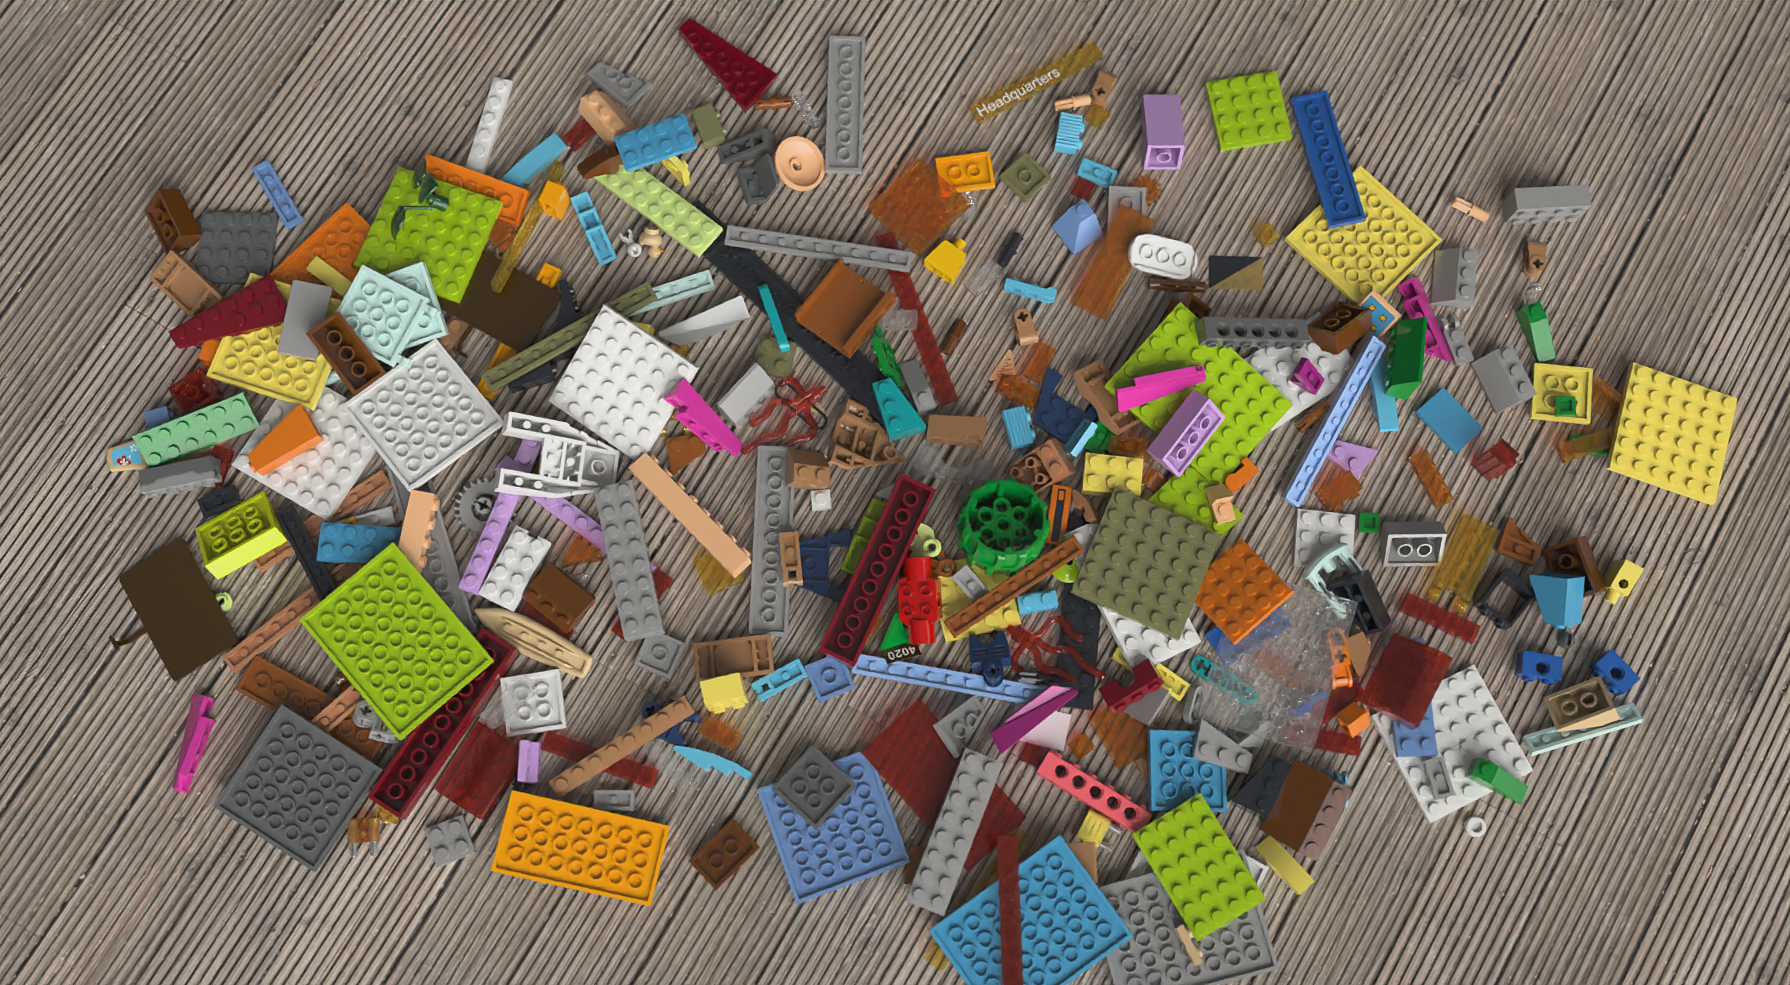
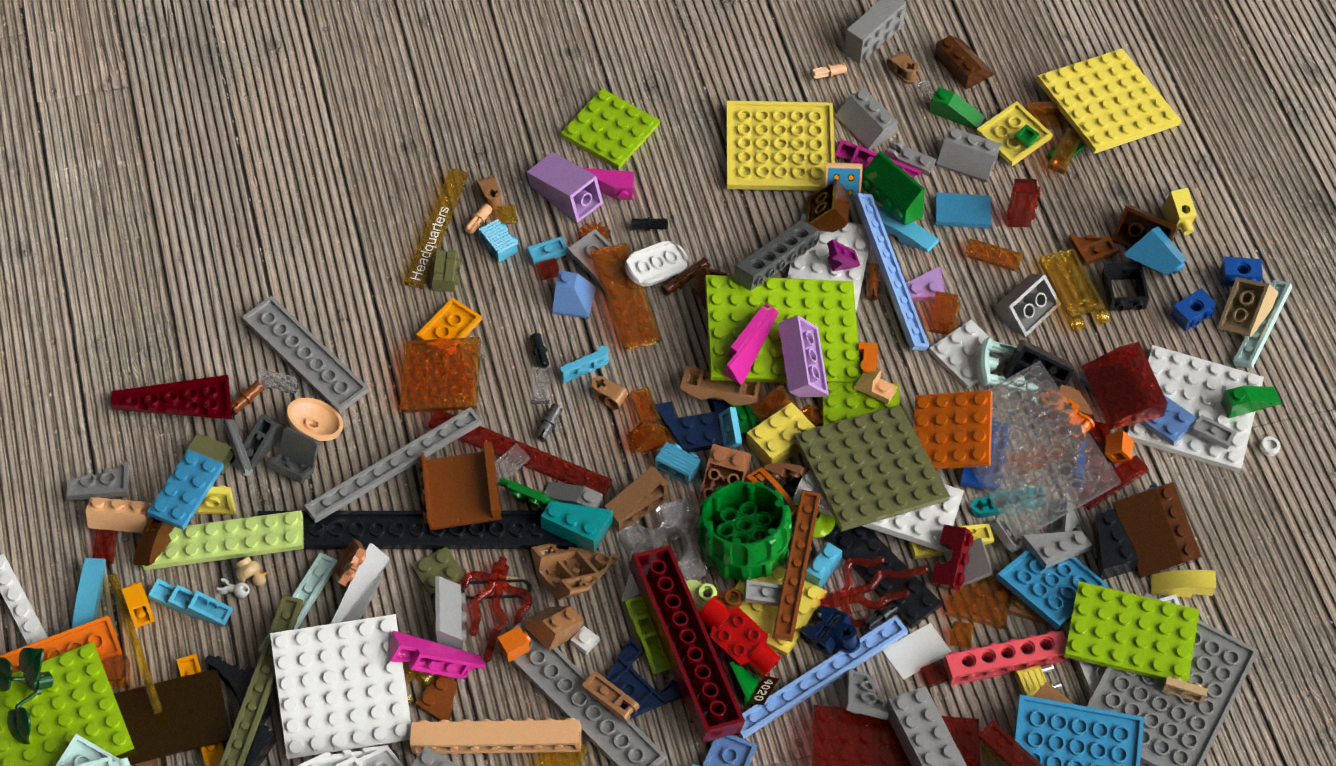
camera: 45 degrees left, 20 degrees down
(716, 296) = (349, 561): none -> nougat plate
(728, 139) = (238, 447): none -> light grey axle
(765, 460) = (514, 643): none -> orange brick
(773, 318) = (411, 540): teal beam -> none
(942, 515) = (675, 518): none -> clear arch
(947, 260) = (501, 395): yellow torso -> none
(953, 337) = (562, 443): reddish brown axle -> none
(960, 312) = (548, 422): none -> dark grey pin
(1005, 366) = (621, 432): tan sticker -> none
(1006, 125) = (445, 271): none -> olive brick
(1025, 177) = (497, 294): olive plate -> none
(1031, 715) = (905, 643): dark pink wedge -> none
(1193, 217) = (647, 223): none -> black axle
(1201, 159) = (615, 183): none -> dark pink slope
(1235, 273) = (716, 237): sticker -> none
(1266, 235) = (711, 194): clear yellow plate -> none
(1327, 160) = (701, 113): blue plate -> none
(1368, 522) = (985, 316): green plate -> none
(1439, 618) = (1098, 336): clear red plate -> none
(1563, 638) = (1188, 280): dark grey hinge -> none
(1589, 294) = (961, 61): none -> reddish brown slope

